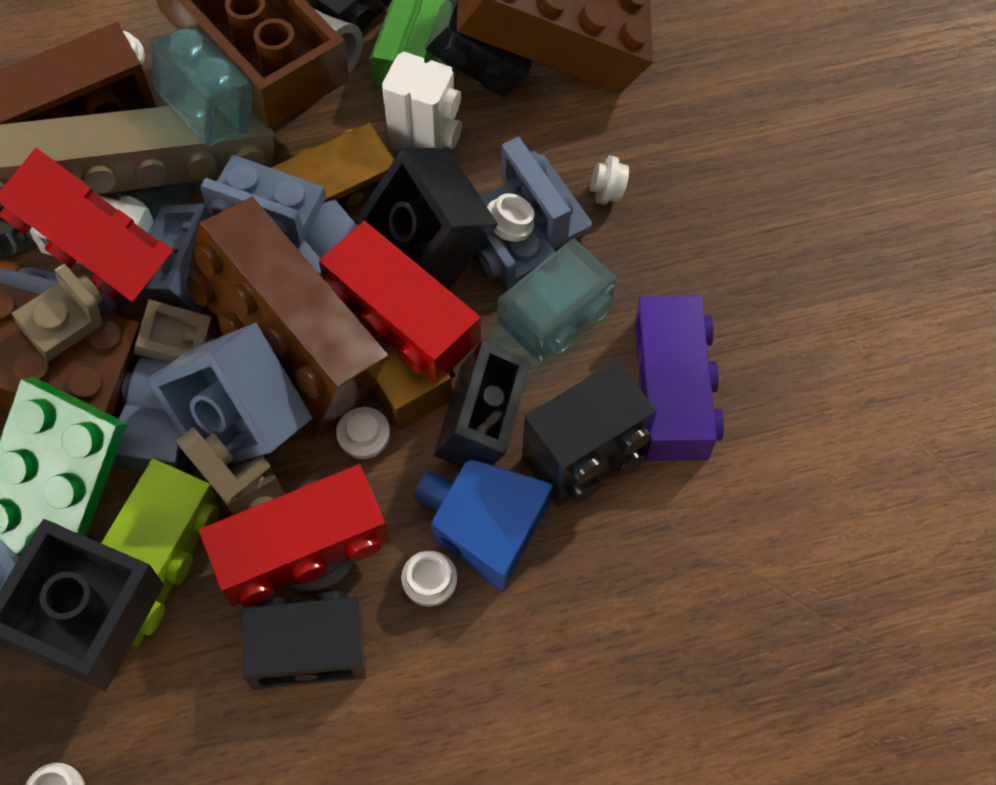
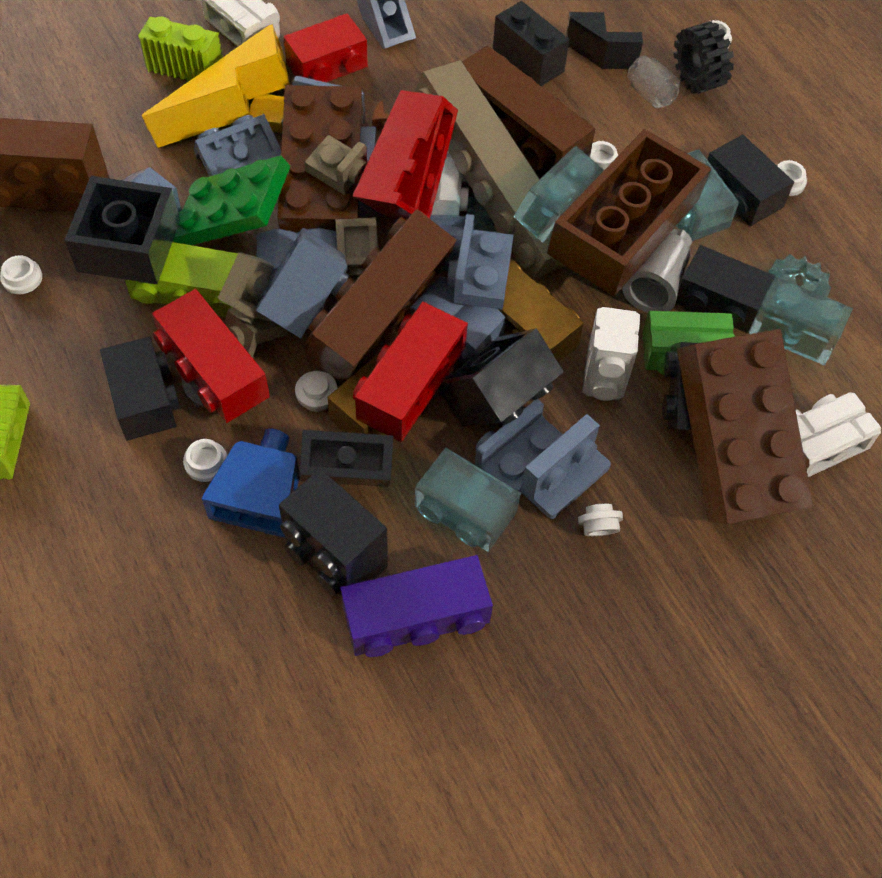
camera: 75 degrees right, 5 degrees down
(513, 217) = (523, 440): white plate -> none

